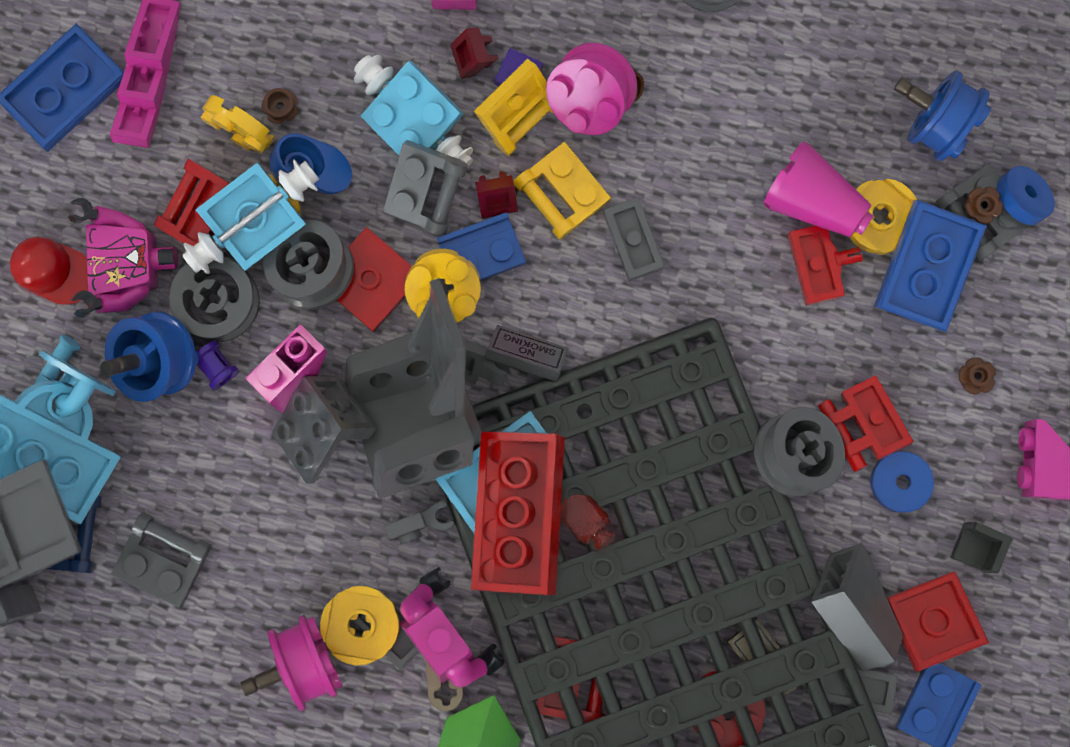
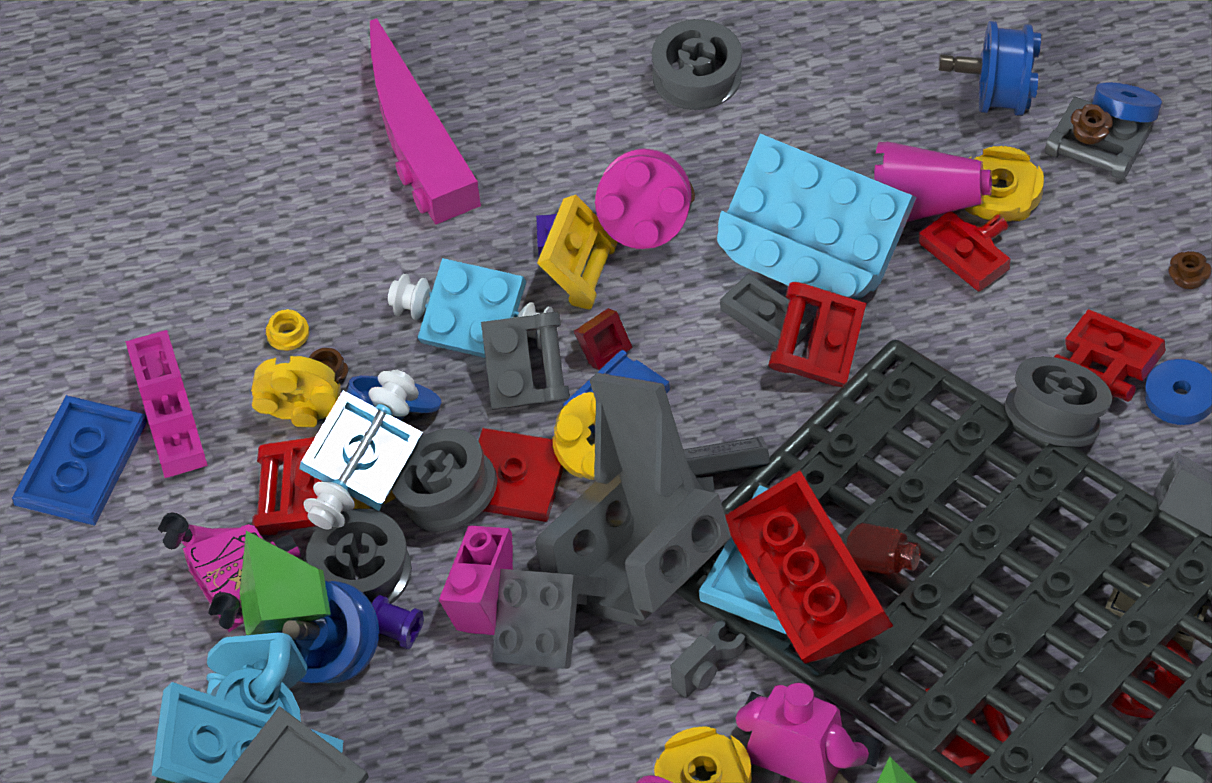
camera: 20 degrees left, 30 degrees down
(49, 269) = (160, 627): red cap -> none
(119, 327) = (278, 588): none -> bright green slope
(268, 42) = (283, 321): none -> yellow plate
(471, 52) = (500, 235): dark red tile -> none
(571, 182) = (672, 299): yellow plate -> none
(665, 295) = (831, 339): none -> red plate
(707, 185) = (812, 221): none -> medium azure plate
(930, 265) = (1076, 198): blue tile -> none

